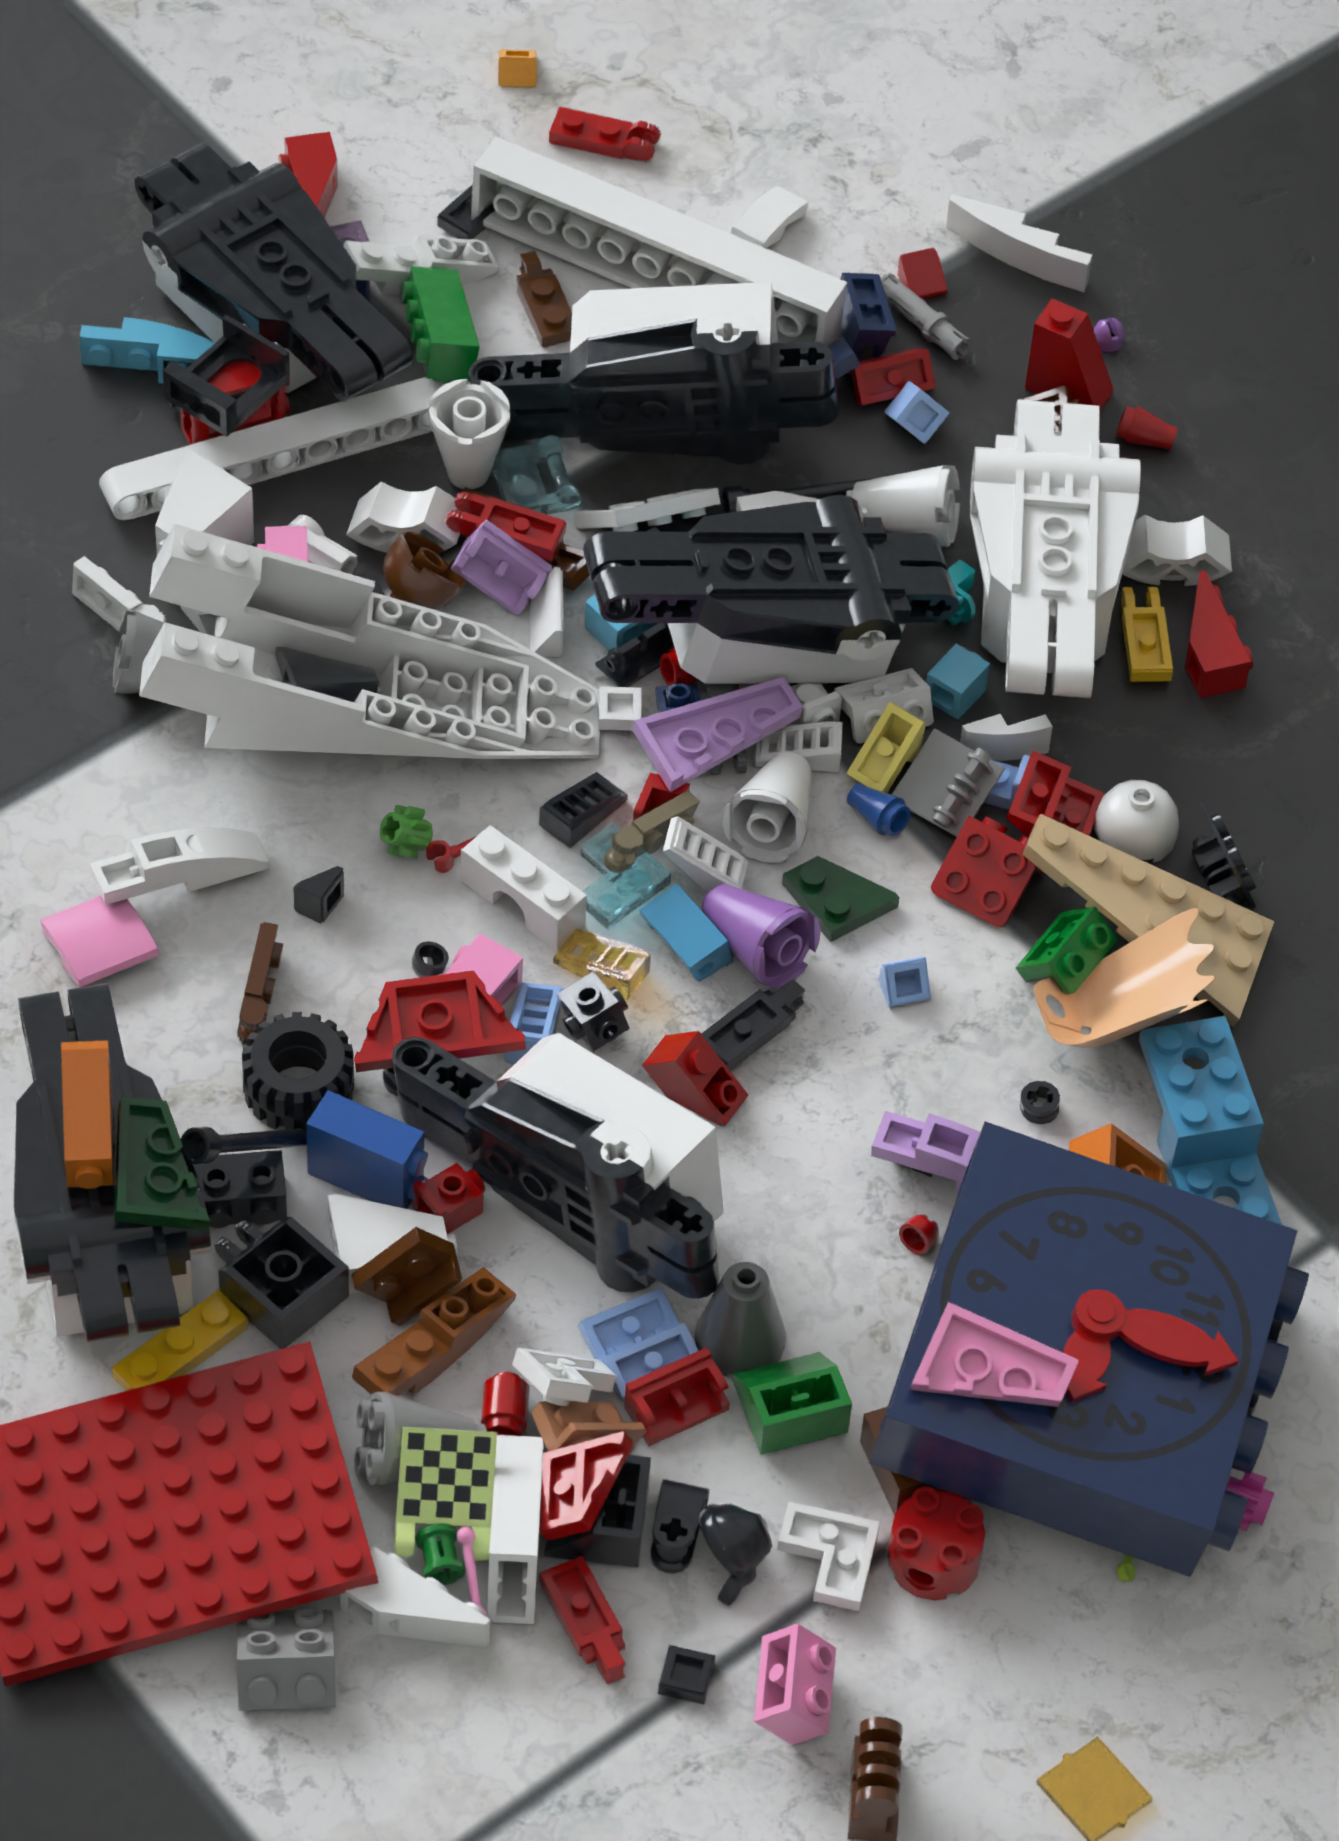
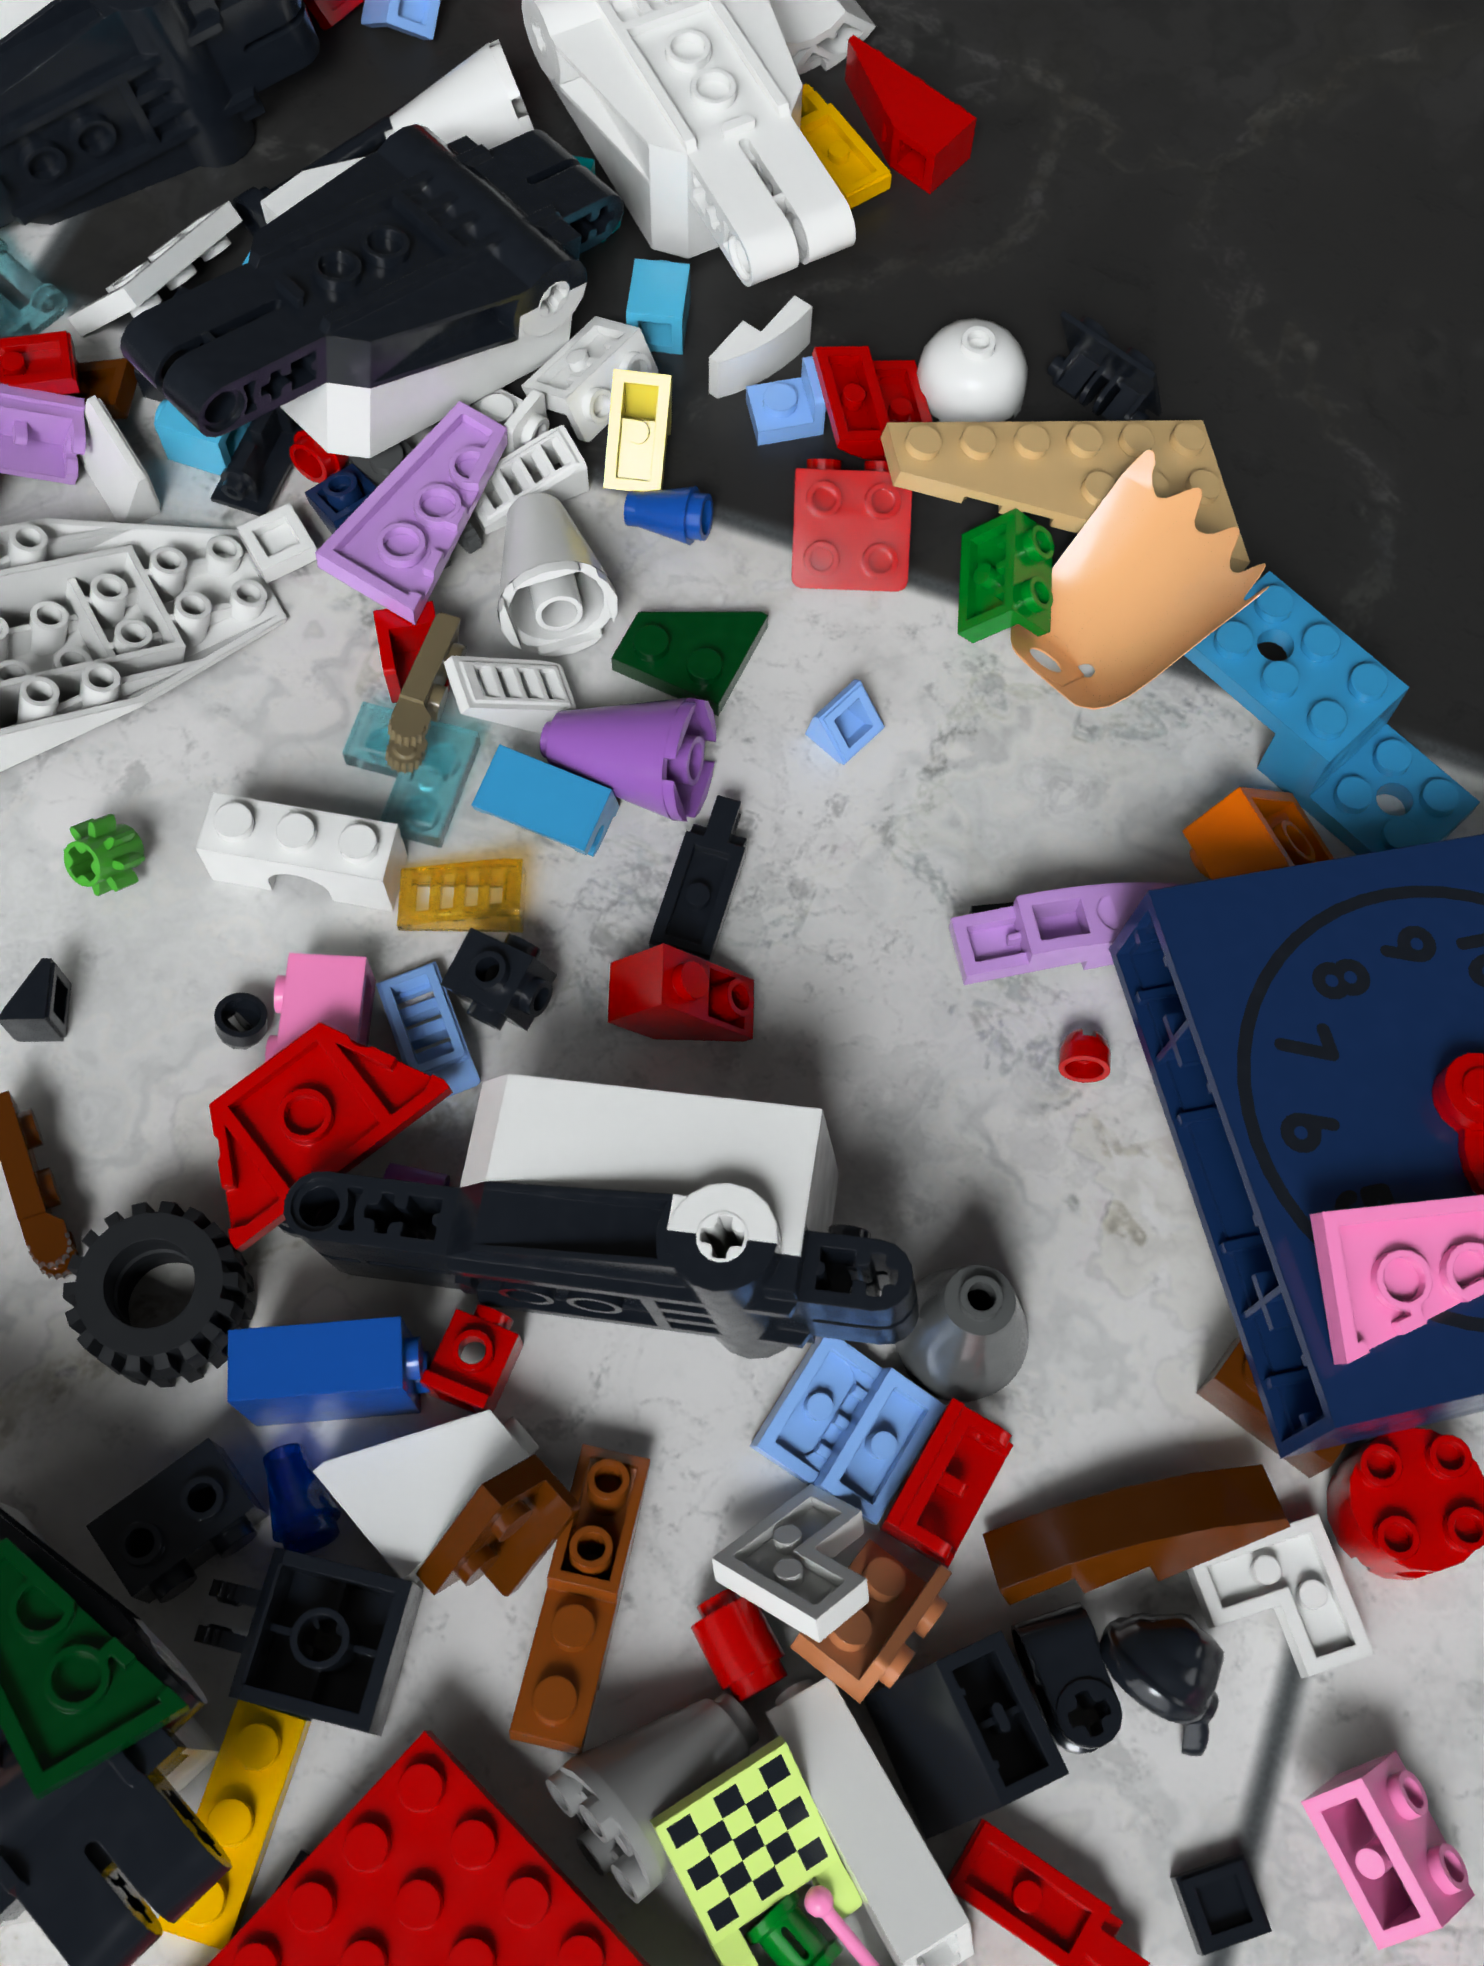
camera: 30 degrees left, 15 degrees up
(204, 1144) = (105, 1561): black piece -> none
(311, 1209) = (299, 1503): none -> clear blue cone
(442, 848) = (179, 848): red hand -> none
(571, 831) = (303, 739): black slope -> none
(578, 1483) = (937, 1742): red wing -> none
(779, 1472) = (1121, 1531): none -> reddish brown slope
(794, 1402) = (1094, 1395): green slope -> none
(948, 782) = (733, 437): light grey hinge -> none
(1049, 1109) = (1110, 778): black bush -> none

